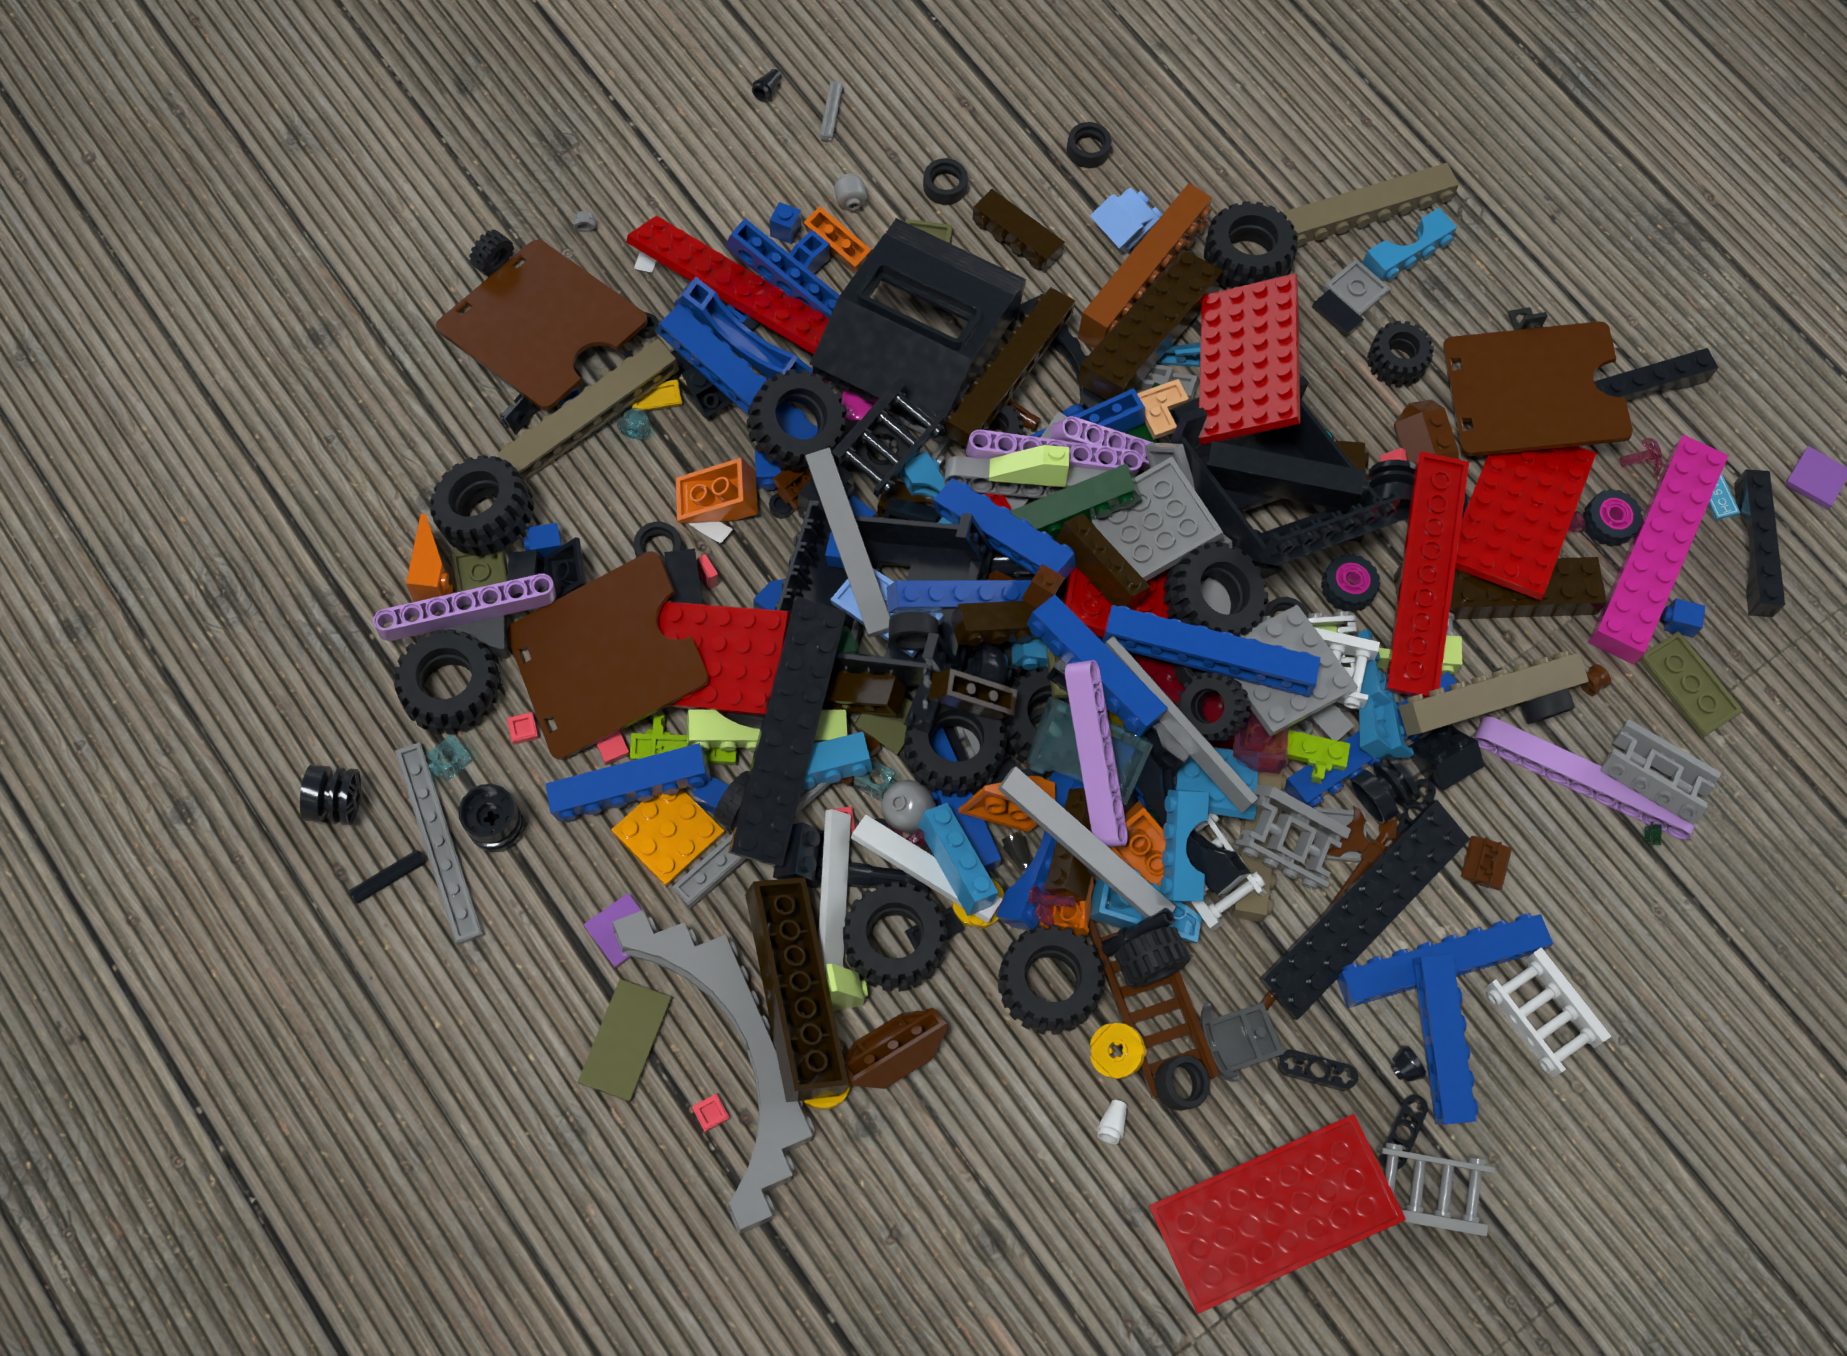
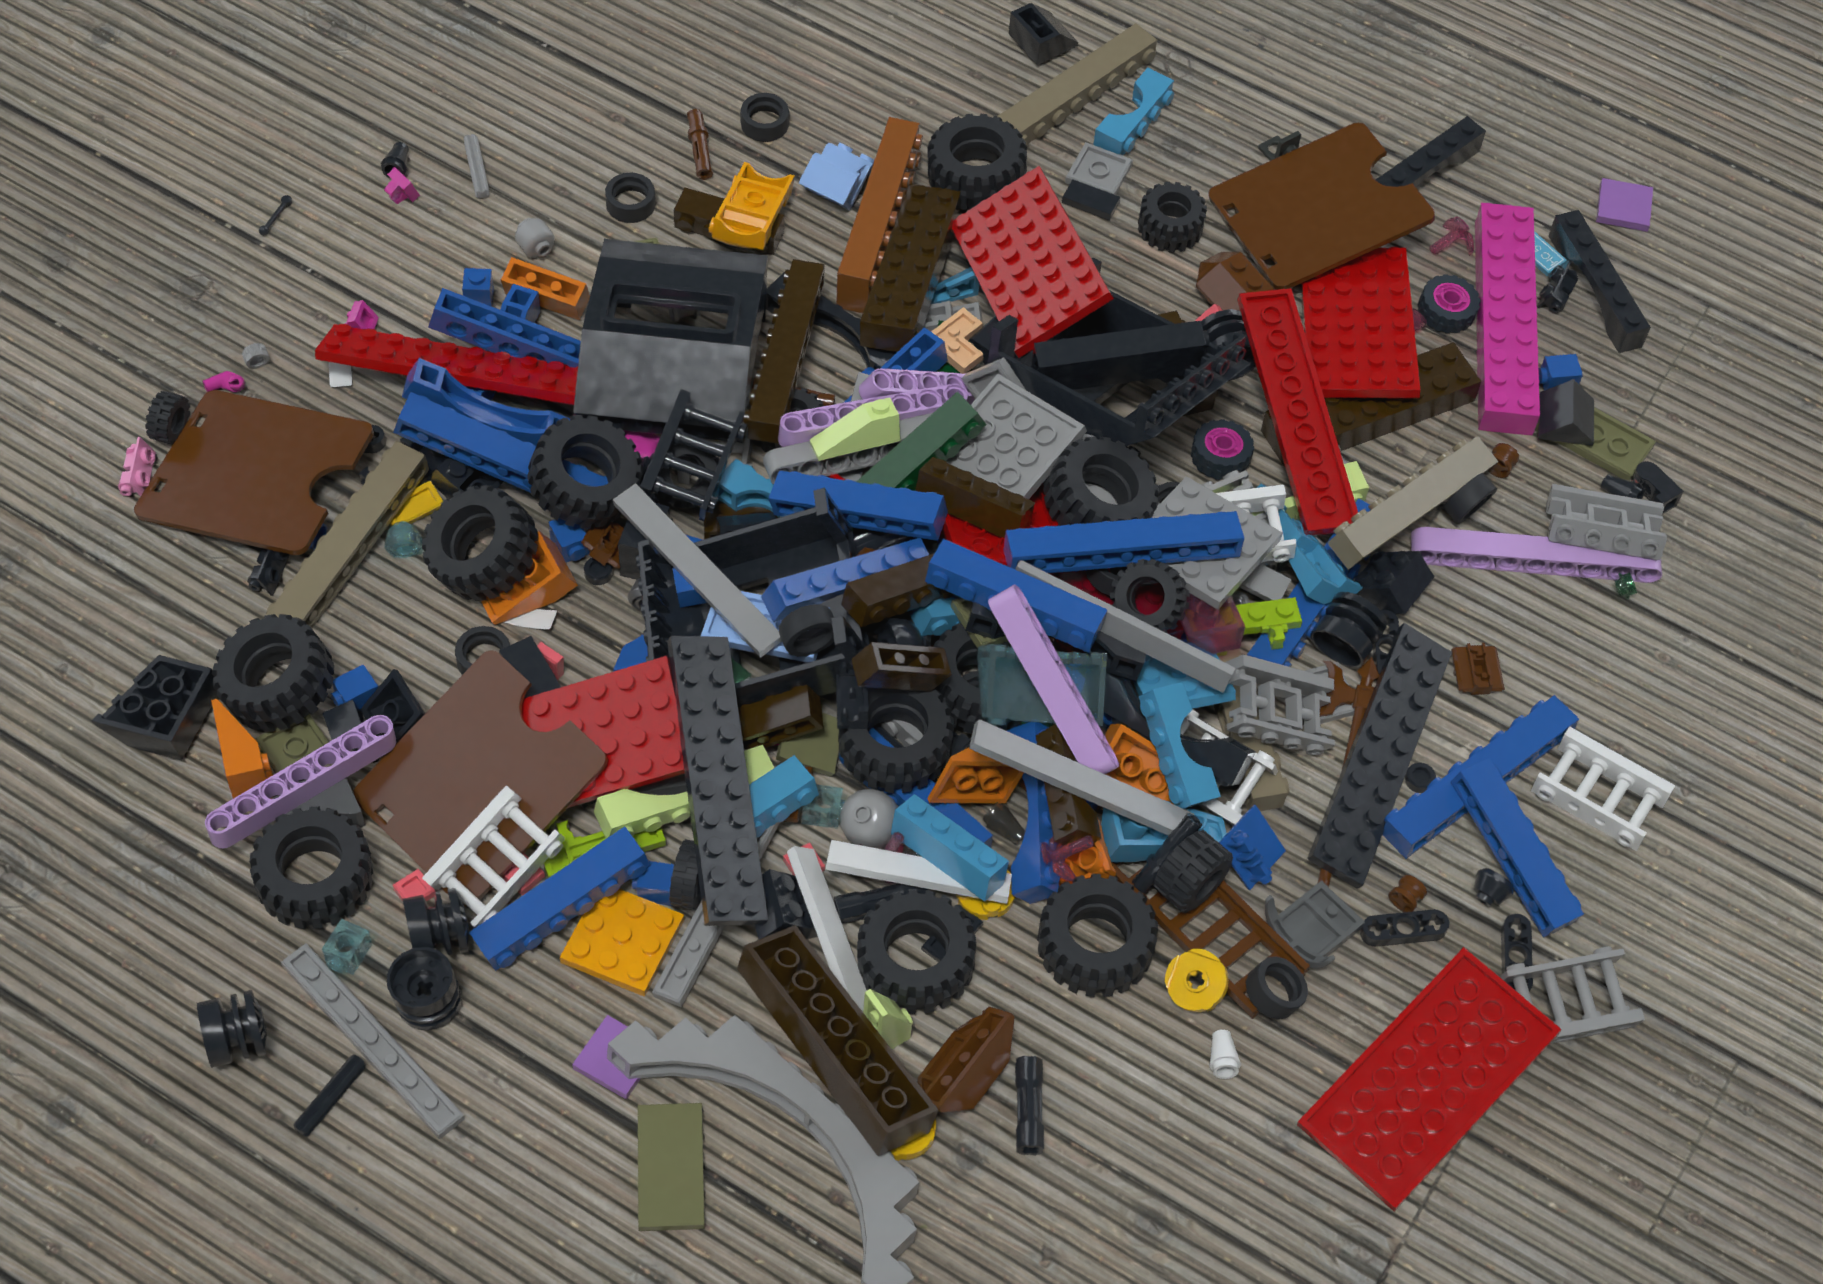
camera: 20 degrees left, 10 degrees down
(387, 502) = (161, 707): none -> black wedge
(456, 286) = (140, 462): none -> bright pink hinge
(526, 768) = (438, 923): none -> black wheel
(551, 234) = (224, 380): none -> dark pink arm
(568, 714) = (484, 829): none -> white fence
(665, 91) = (286, 201): none -> black hinge
(681, 216) = (361, 316): none -> dark pink tile
(706, 468) = (459, 523): none -> black tyre
(710, 1113) = (797, 1206): coral tile -> none
(760, 110) = (400, 187): none -> dark pink tile
(932, 1103) = (1029, 1105): none -> black axle
(1025, 144) = (698, 136): none -> reddish brown pin
(1039, 226) = (750, 208): none -> light orange piece
(1042, 586) = (924, 539): reddish brown brick -> none
(1216, 952) = (1253, 848): none -> blue hinge
(1332, 1042) = (1407, 893): none -> reddish brown wheel
(1360, 144) = (1039, 33): none -> black slope
(1391, 940) = (1419, 777): none -> black tile
(1671, 658) = (1566, 414): none -> black slope
(1692, 744) = (1622, 487): none -> black cone
(1723, 752) = (1657, 485): none -> black leg
(1725, 529) = (1560, 279): none -> black hinge

